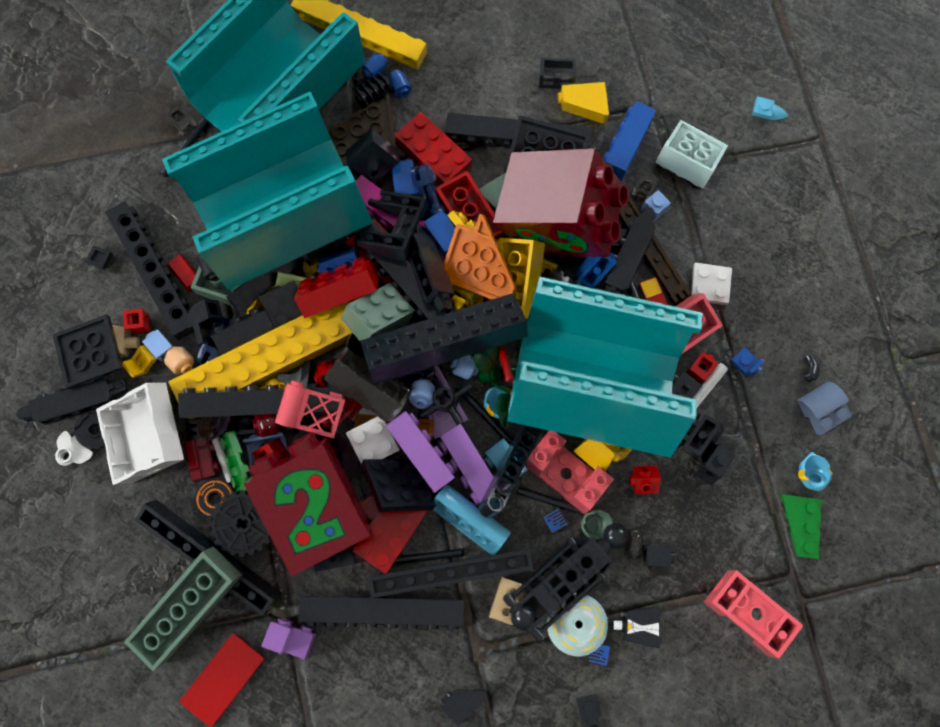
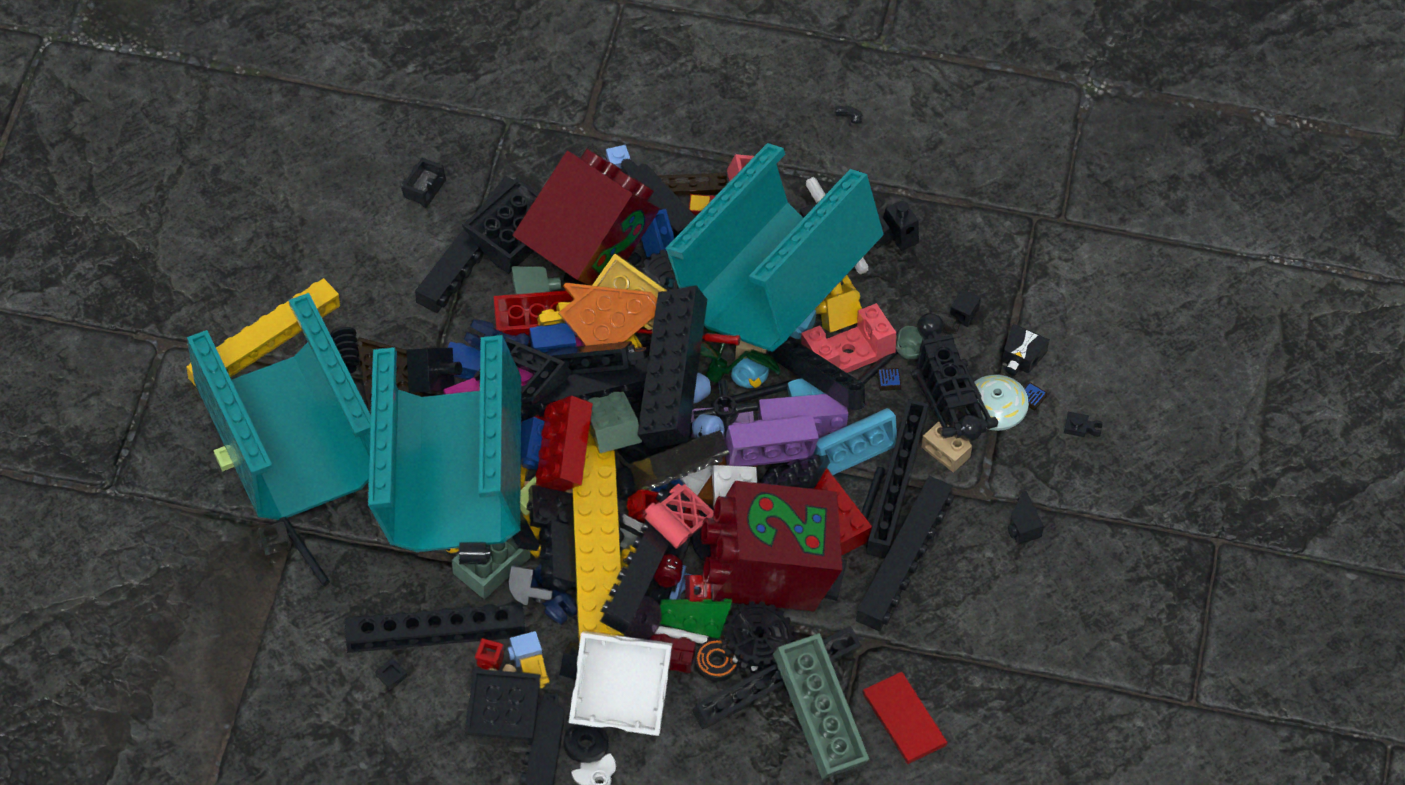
camera: 65 degrees left, 20 degrees down
(178, 360) = (552, 635): light nougat head -> none
(183, 271) = (452, 600): red tile -> none
(287, 638) = (892, 638): medium lavender brick -> none
(399, 84) = (352, 320): blue brick -> none
(429, 145) = (446, 320): red brick -> none
(585, 100) = (470, 171): yellow slope -> none
(629, 138) = (533, 146): blue brick -> none
(645, 479) = (888, 286): red brick -> none
(691, 154) = (580, 110): light aqua slope -> none
(707, 362) = (802, 194): red brick -> none
(712, 281) = (719, 152): white plate -> none
(736, 599) = (1032, 257): coral plate -> none
(747, 363) = (817, 161): blue bracket -> none
(767, 109) = (566, 30): medium azure plate -> none
(804, 522) = (988, 183): green wing -> none
(815, 472) = (949, 153): medium azure hair -> none
(825, 407) = (892, 118): sand blue brick -> none

